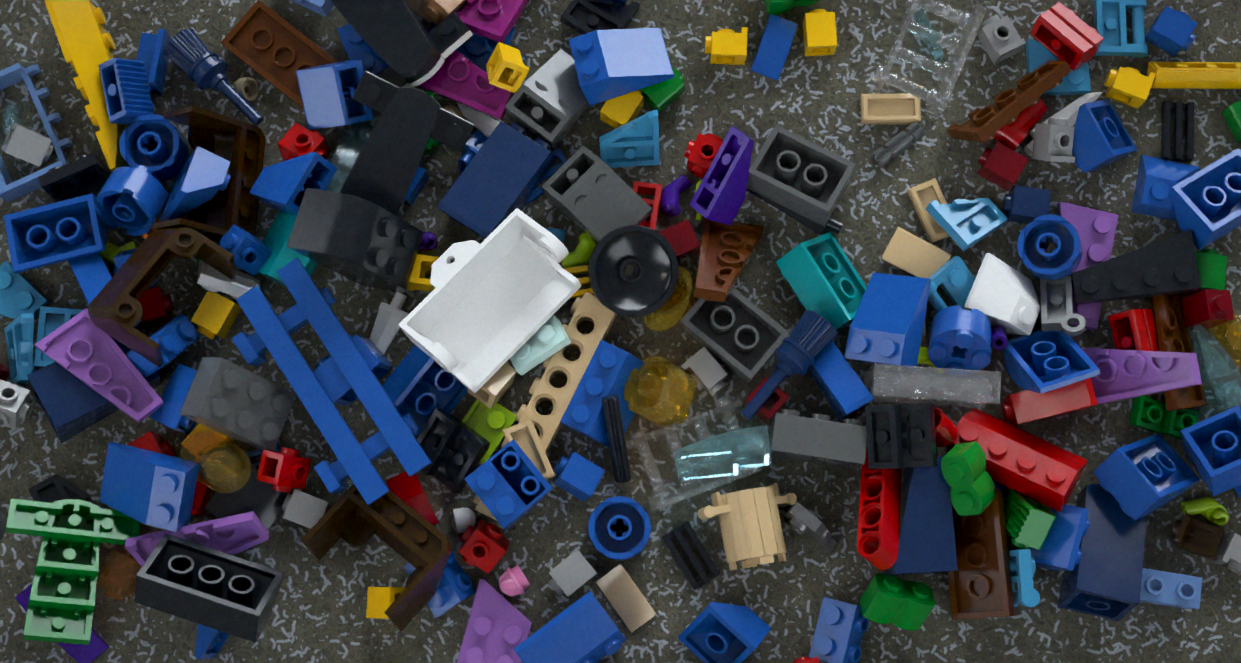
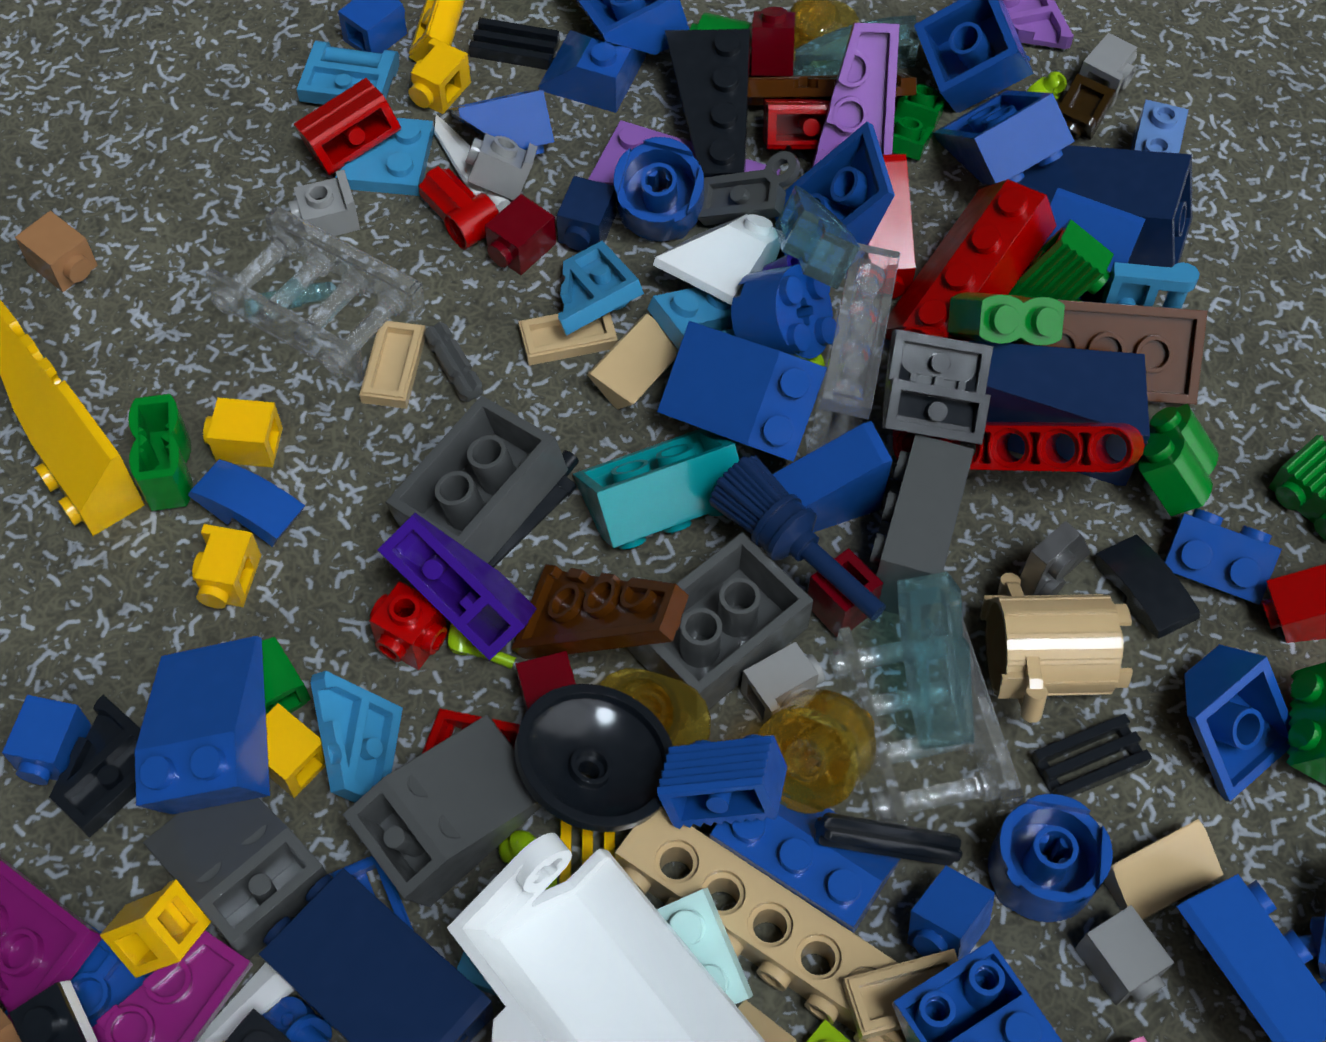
camera: 85 degrees left, 20 degrees down
(628, 340) = (723, 781): none -> blue brick
(671, 193) = (463, 696): dark purple arm -> none
(809, 587) = (1150, 586): none -> black slope
(1009, 103) = (433, 204): reddish brown wing -> none
(1009, 349) = (816, 238): none -> clear light blue slope

